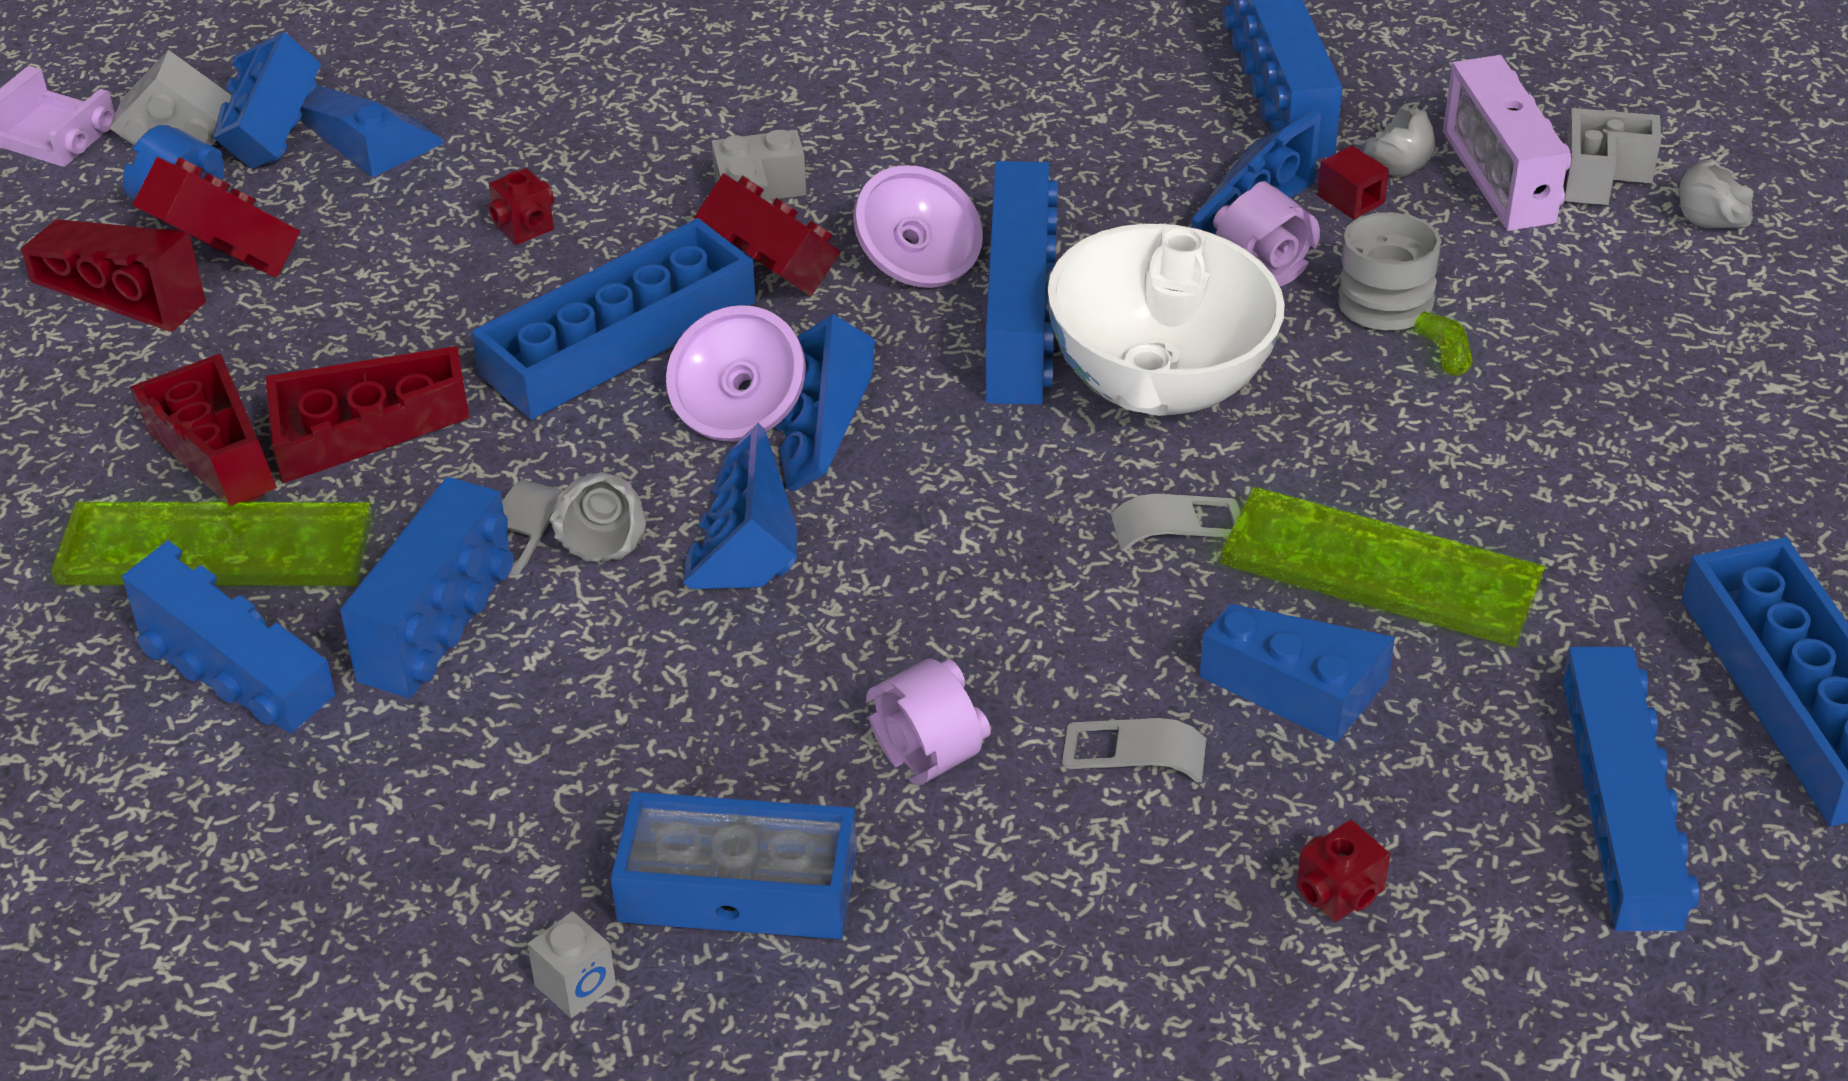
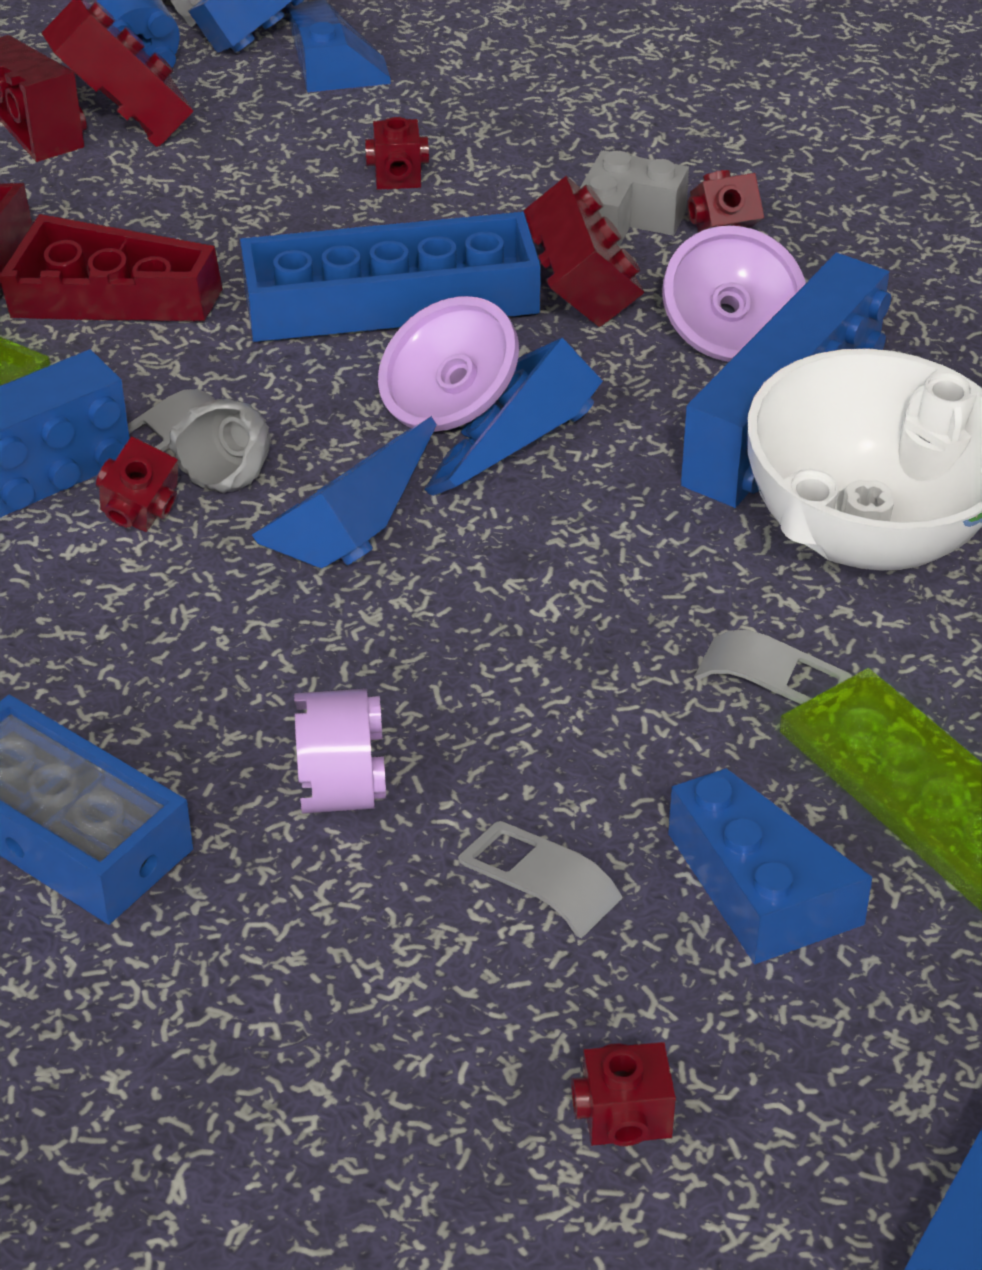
camera: 30 degrees right, 0 degrees up
(559, 580) = (138, 485): none -> dark red brick
(842, 152) = (725, 201): none -> dark red brick

